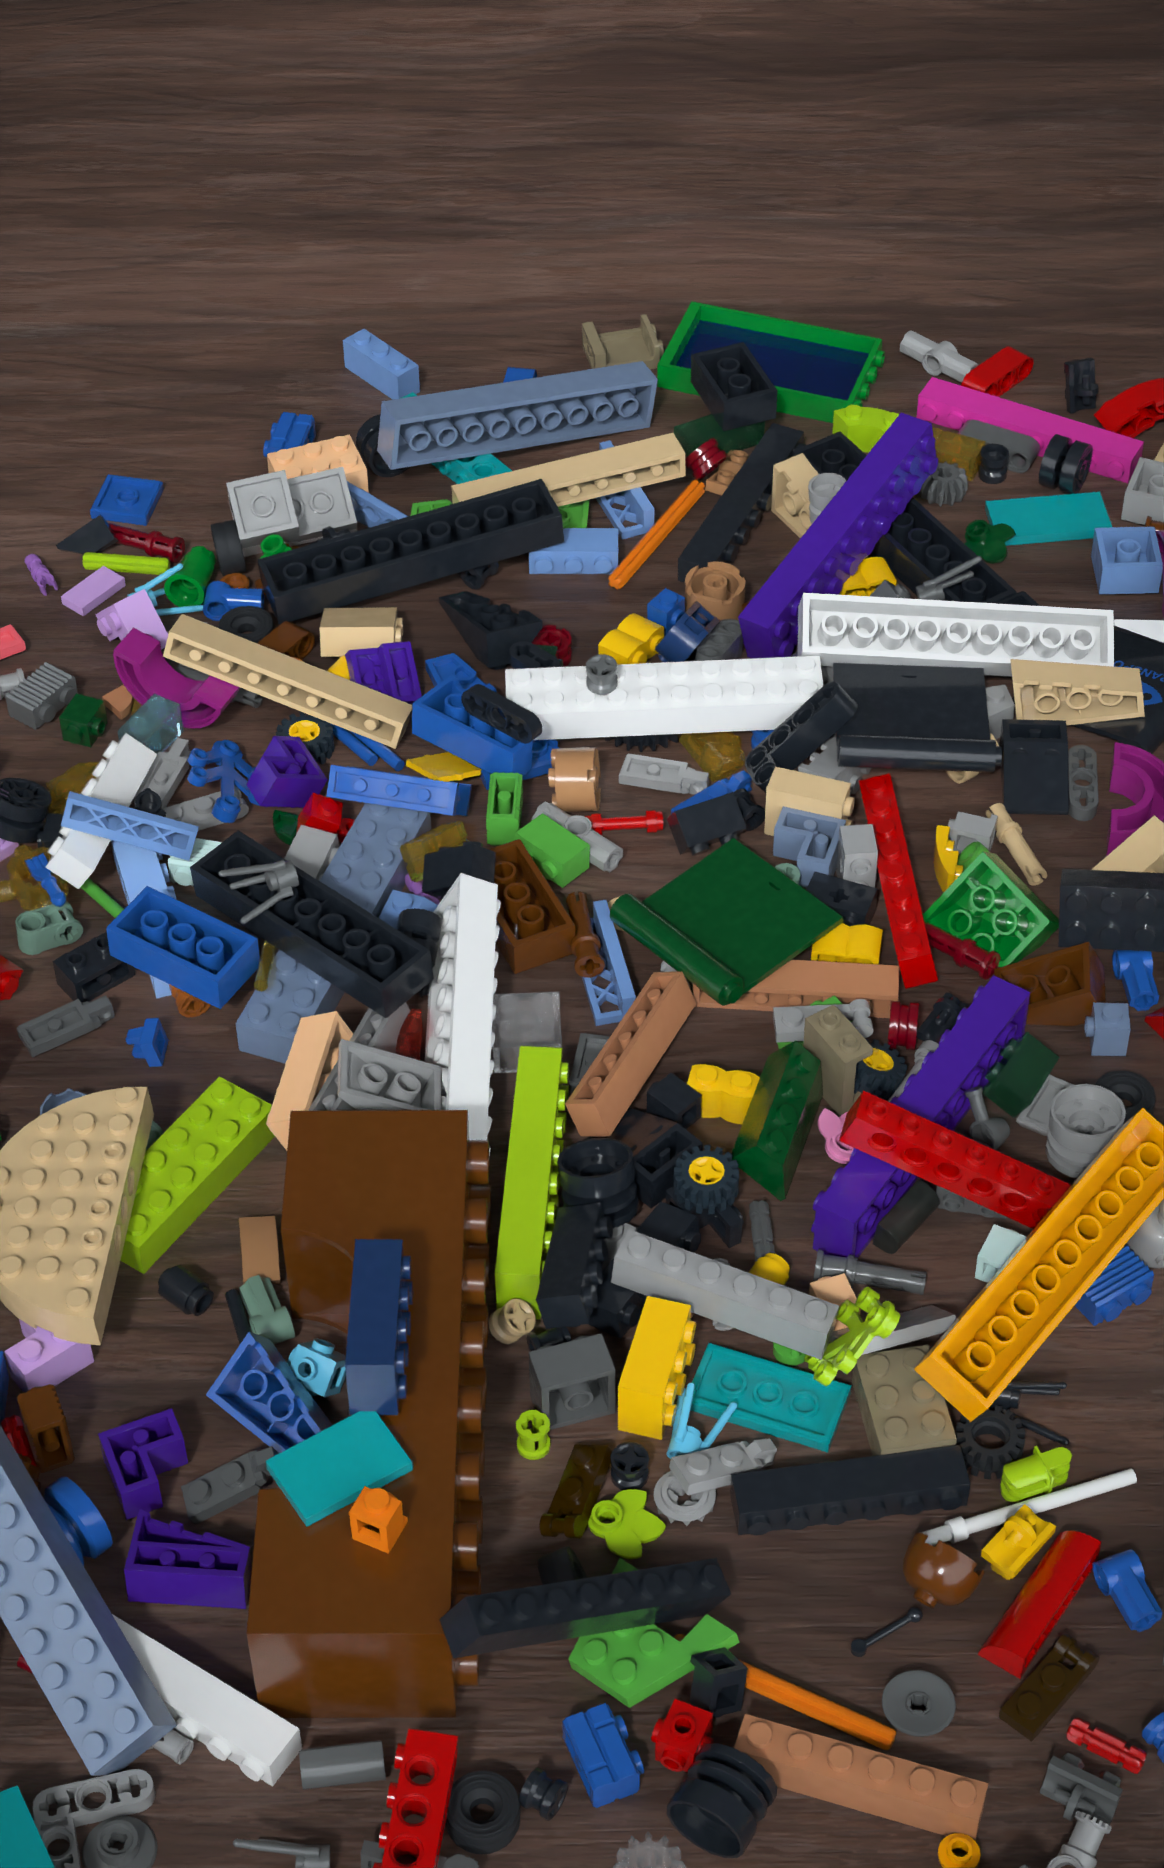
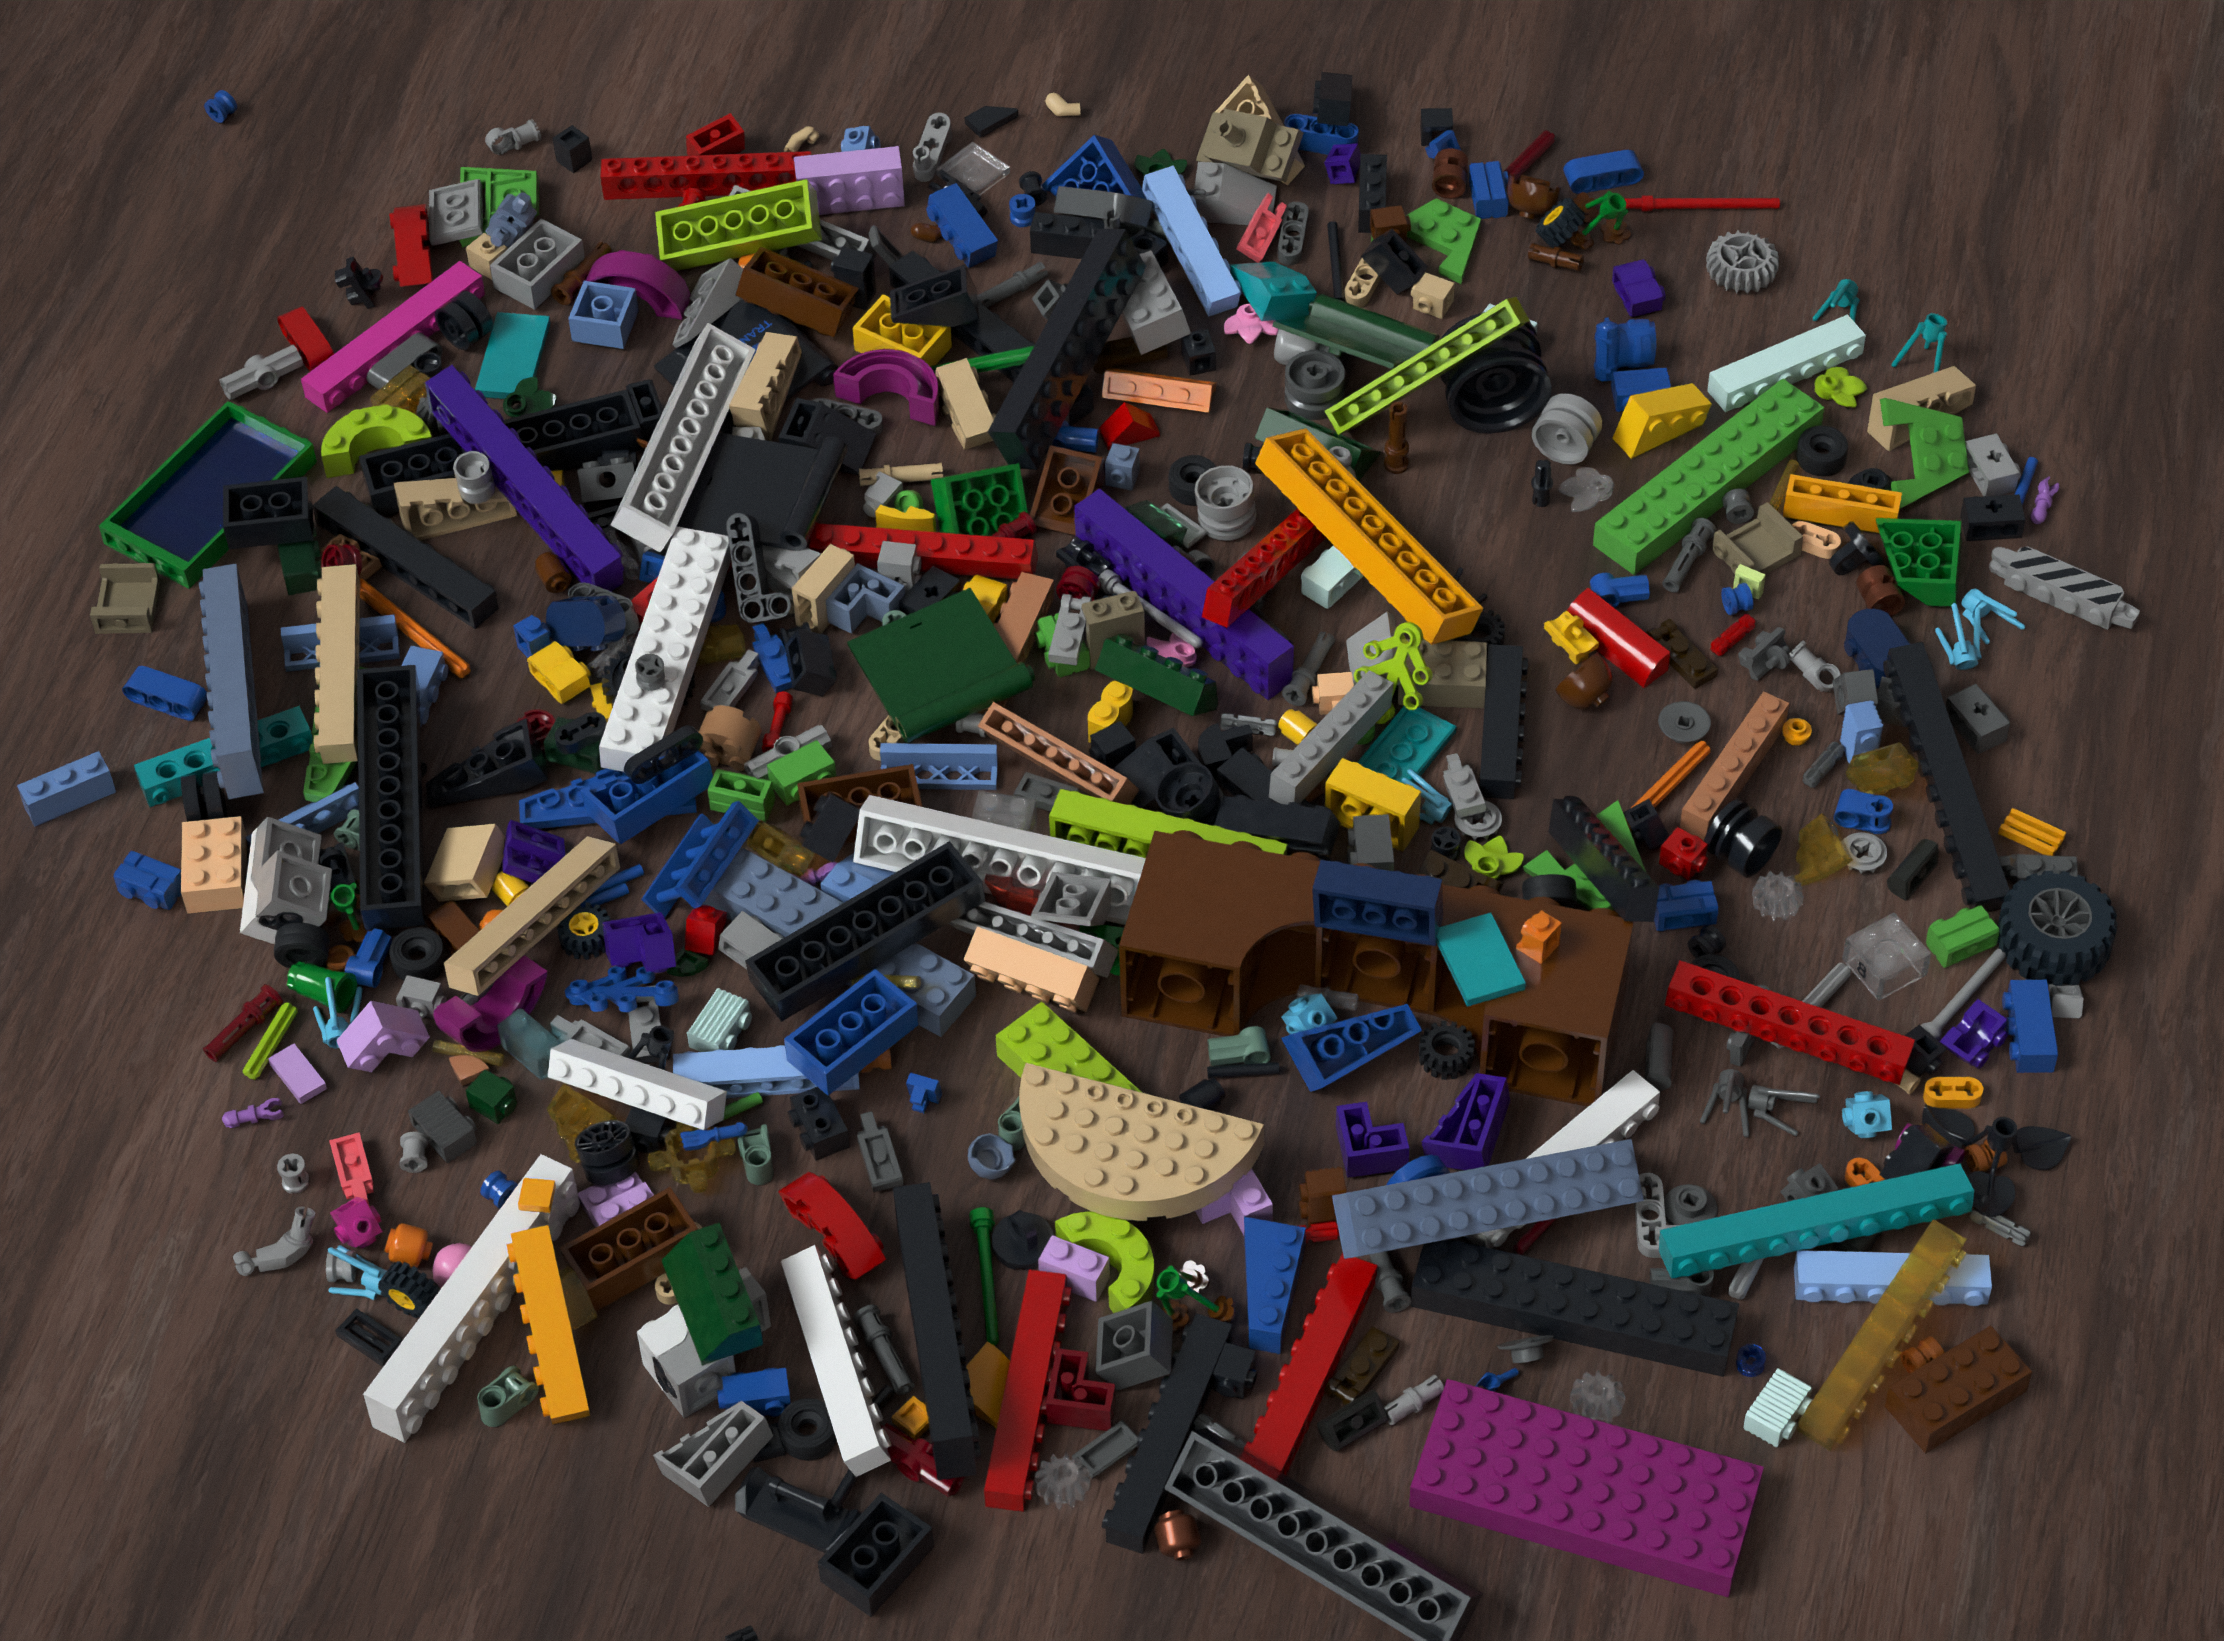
camera: 75 degrees left, 5 degrees up
(92, 537) = (225, 1063): black tile -> none
(127, 499) = (167, 1031): blue tile -> none
(129, 826) = (690, 1051): medium blue fence -> none
(226, 1485) = (1402, 1088): dark grey hinge -> none
(259, 1248) = (1165, 1042): medium nougat slope -> none
(278, 876) = (831, 931): dark grey plant -> none
(422, 927) = (890, 862): black wheel -> none
(443, 767) = (666, 833): yellow piece -> none
(585, 943) = (924, 769): reddish brown pin -> none
(697, 1168) = (1211, 732): black wheel -> none
(717, 589) = (525, 594): medium nougat brick -> none
(860, 1646) = (1624, 749): black hinge -> none
(934, 588) = (613, 443): dark grey plant -> none
(959, 1528) = (1544, 669): white bar -> none
(1035, 1474) = (1515, 615): lime arm -> none

